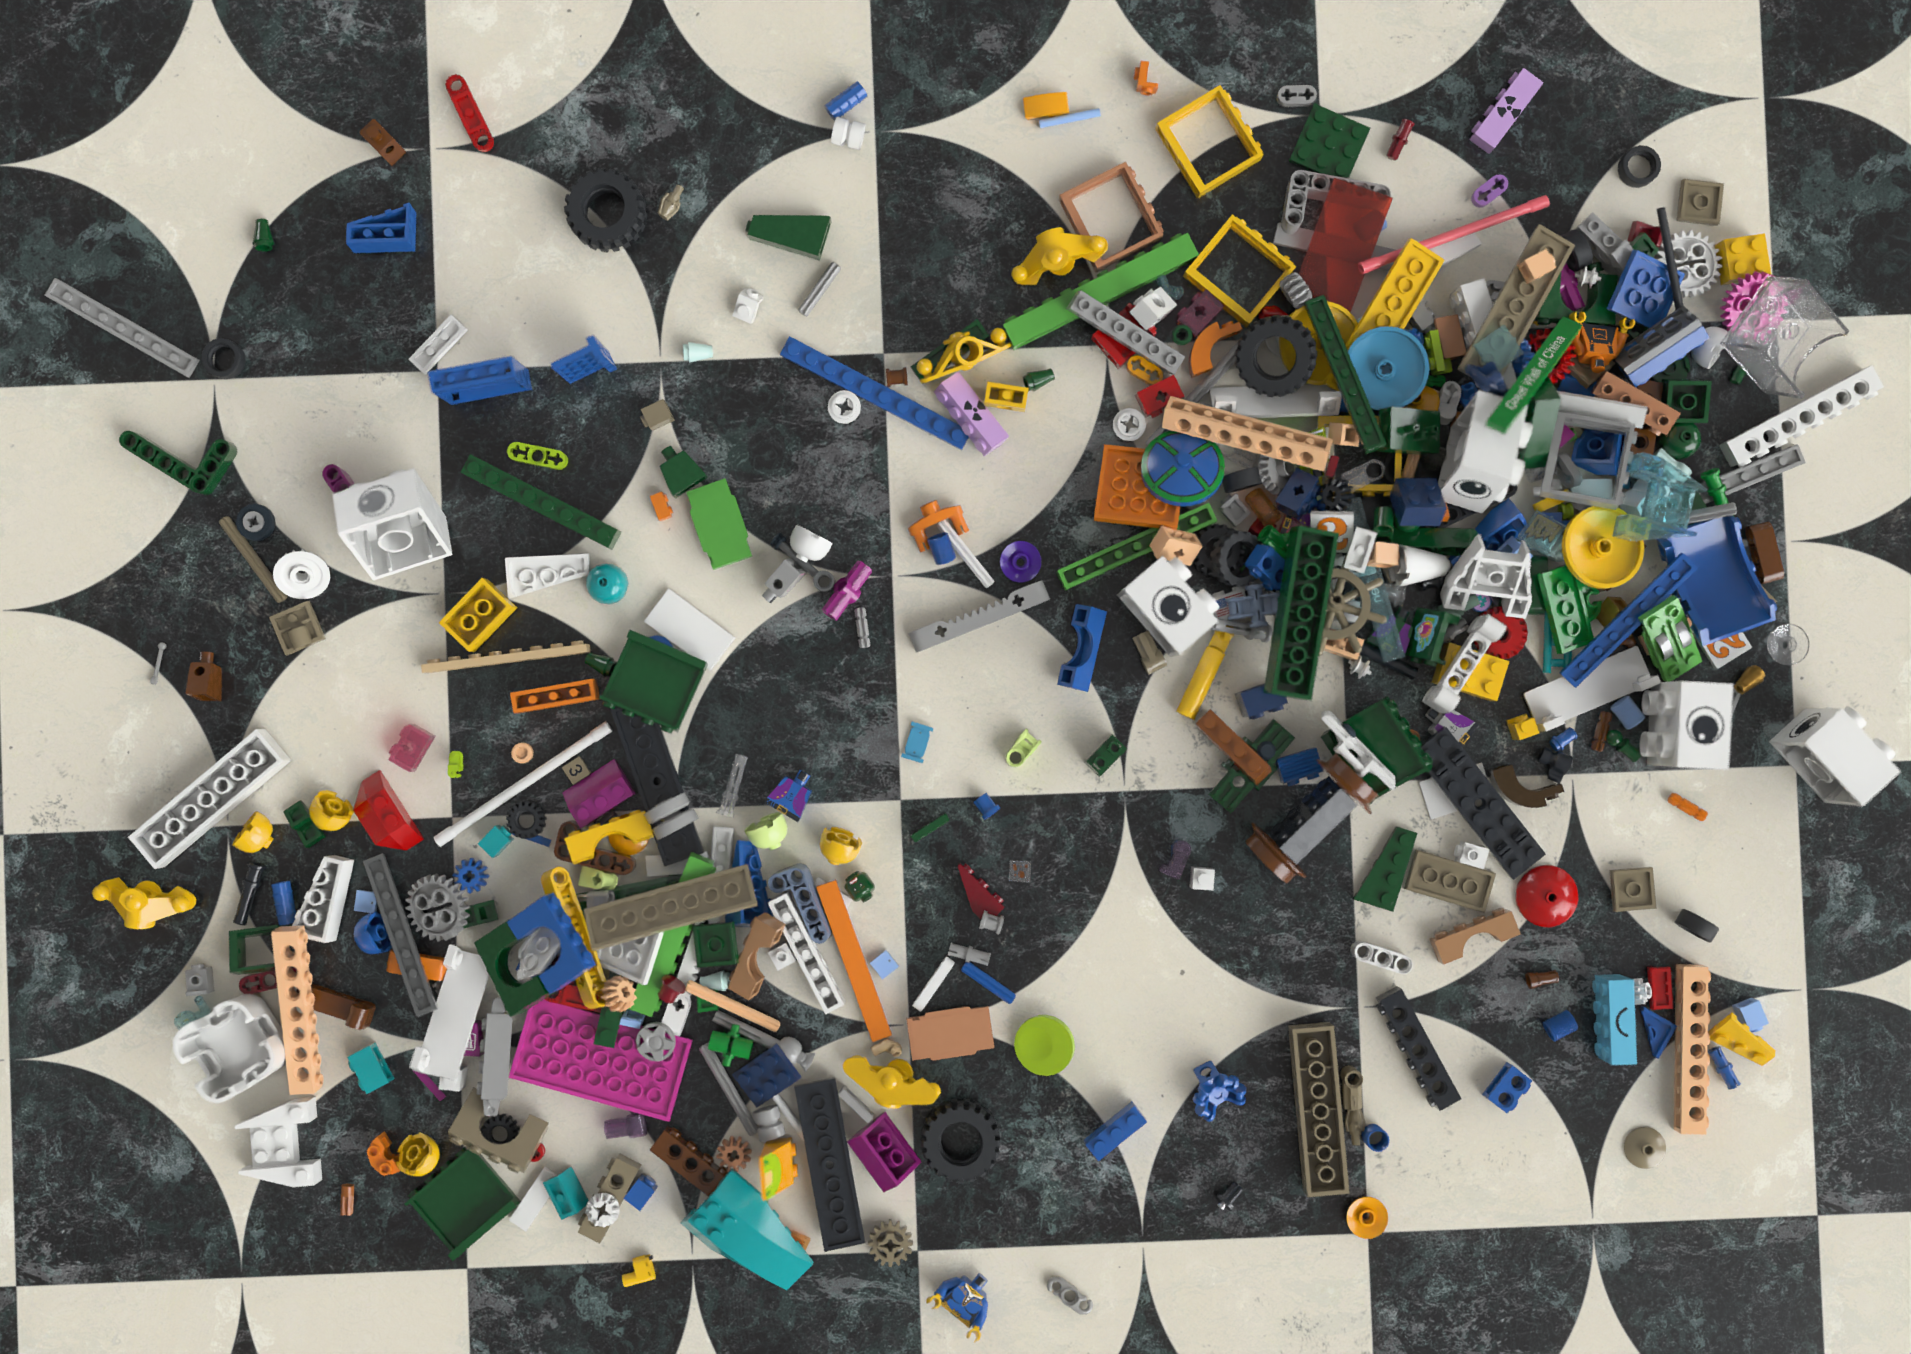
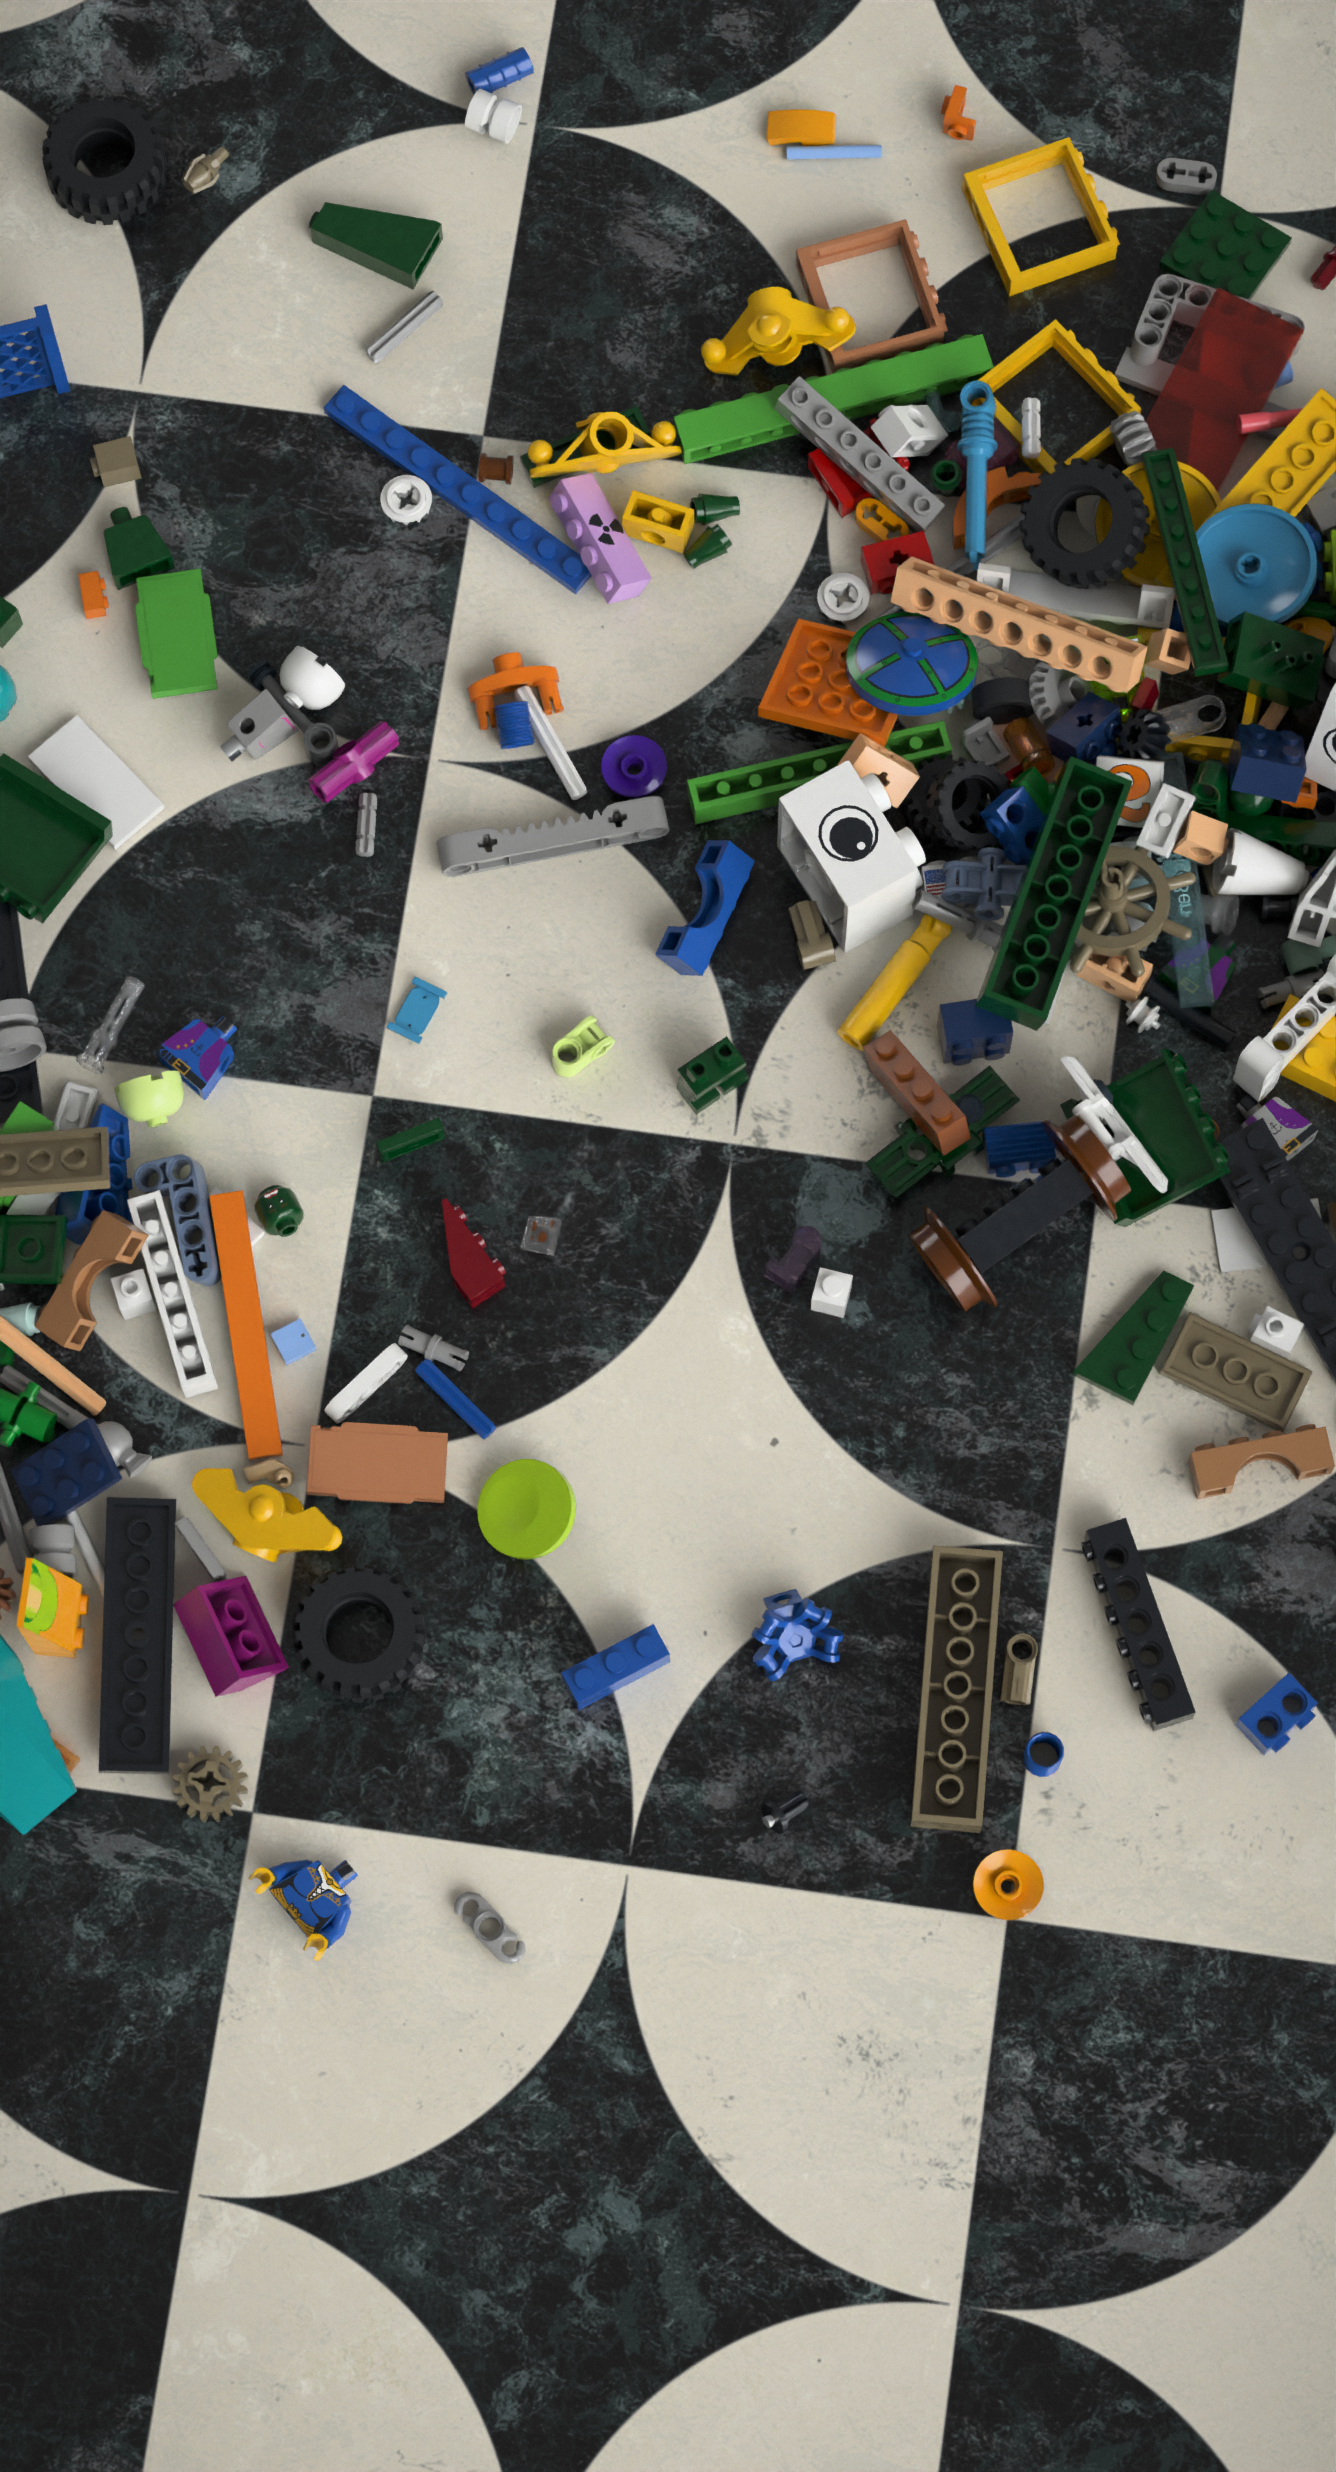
camera: 15 degrees right, 15 degrees down
(696, 351) = (197, 383): light aqua cone -> none
(747, 305) = (288, 330): white bracket -> none
(839, 845) = (258, 1142): yellow cylinder -> none
(986, 806) = (507, 1124): blue bush -> none
(991, 922) = (477, 1291): light grey bush -> none
(1039, 405) = (708, 546): none -> dark green cone
(1199, 315) = (976, 447): none -> dark azure piece
(1230, 293) = (1031, 428): none -> white axle
(1355, 1124) = (1014, 1730): dark tan piece -> none
(1390, 961) = (1093, 1453): white beam -> none
(1428, 635) = (1254, 978): dark green panel -> none

